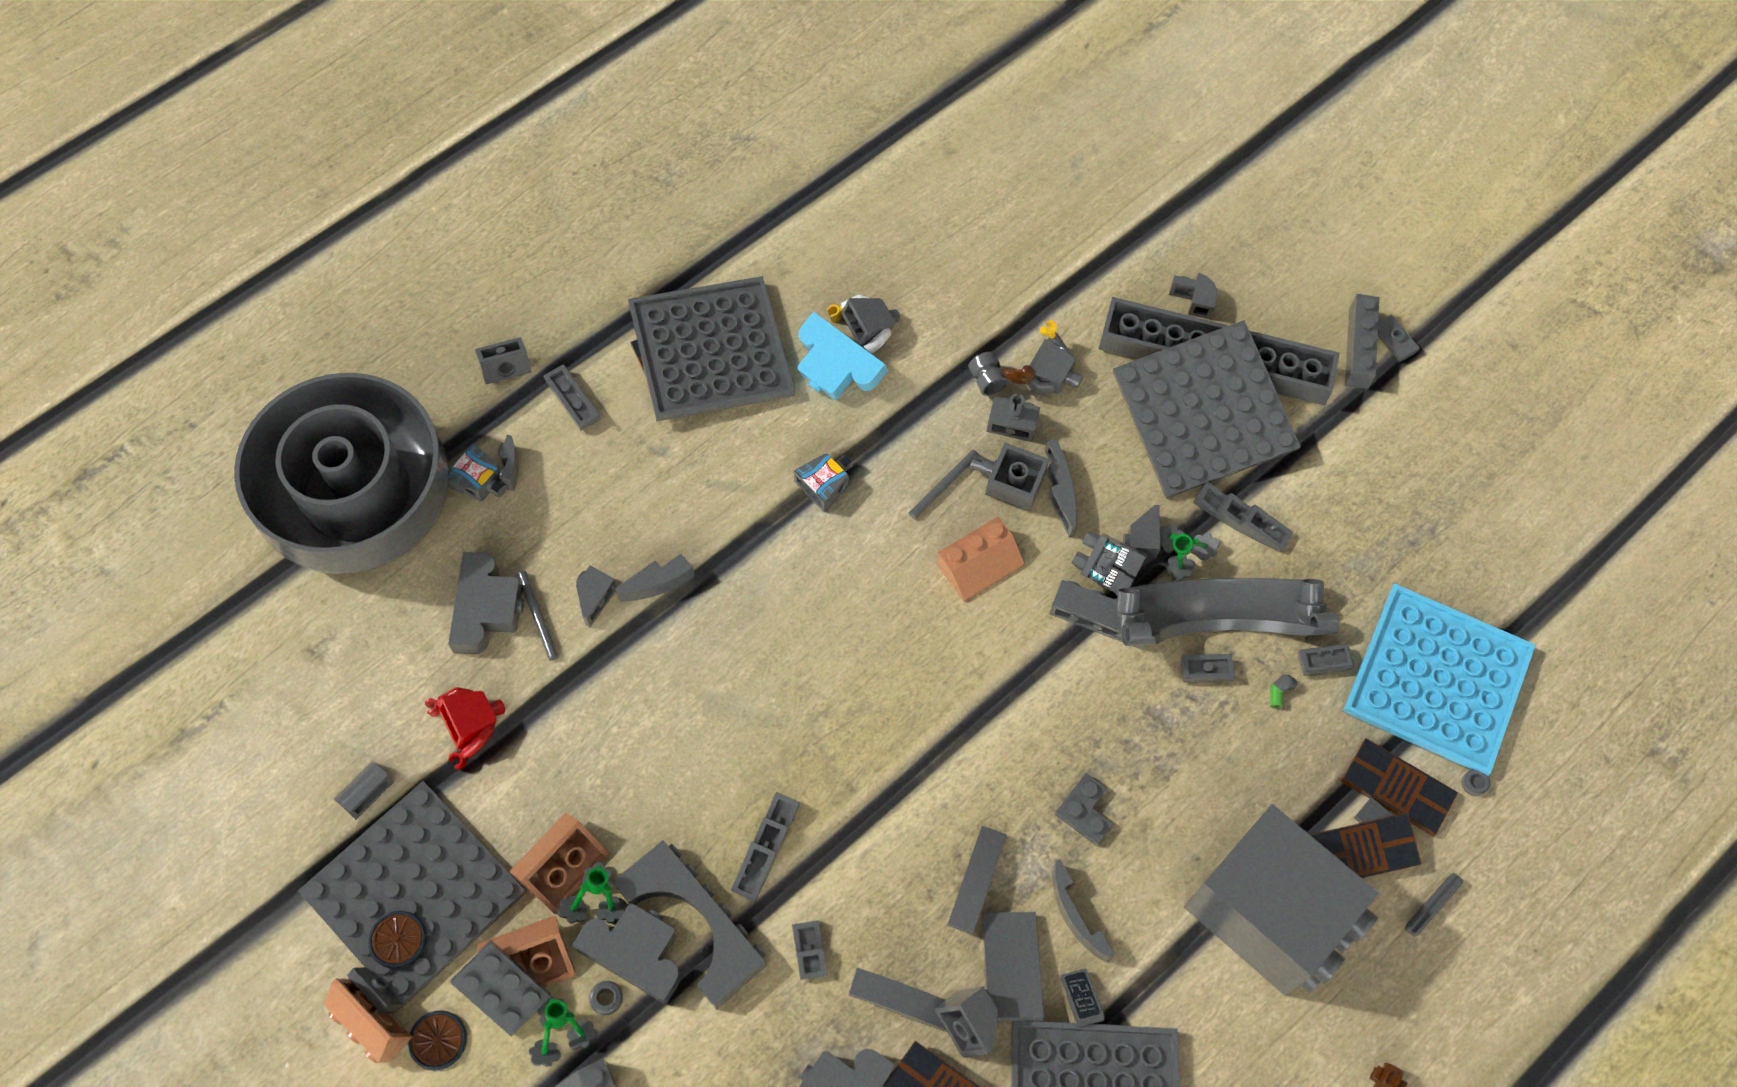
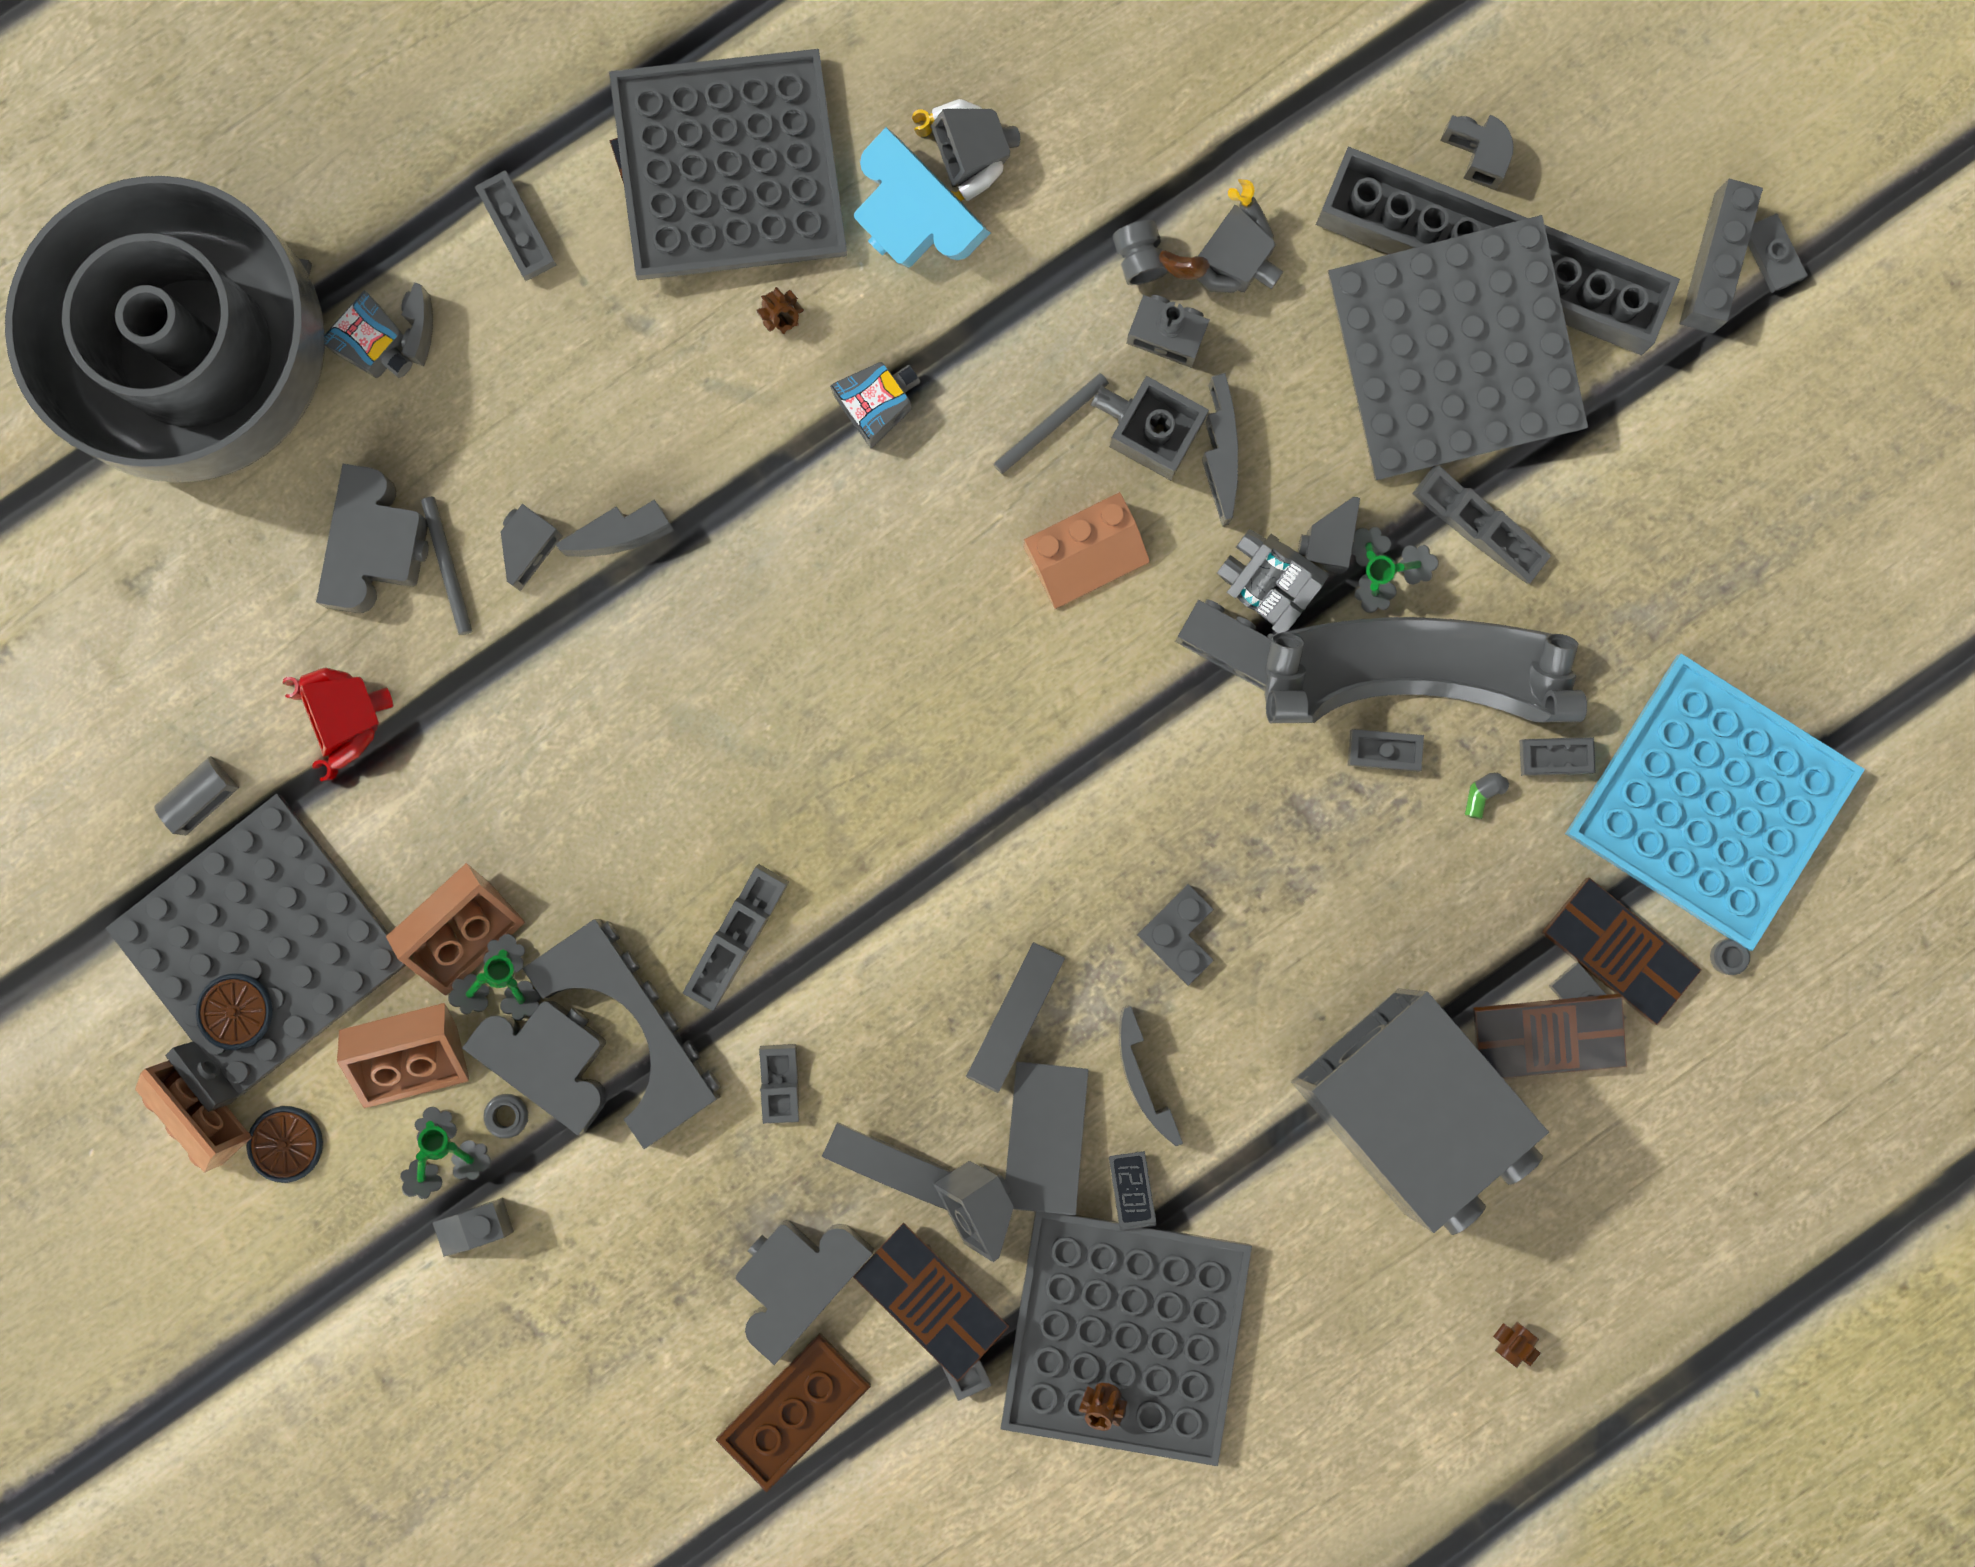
camera: 10 degrees right, 20 degrees up
(500, 988) = (365, 1095): dark grey plate -> none
(503, 360) = (415, 156): dark grey brick -> none
(748, 428) = (780, 310): none -> reddish brown gear
(1434, 904) = (1632, 1119): dark grey axle -> none

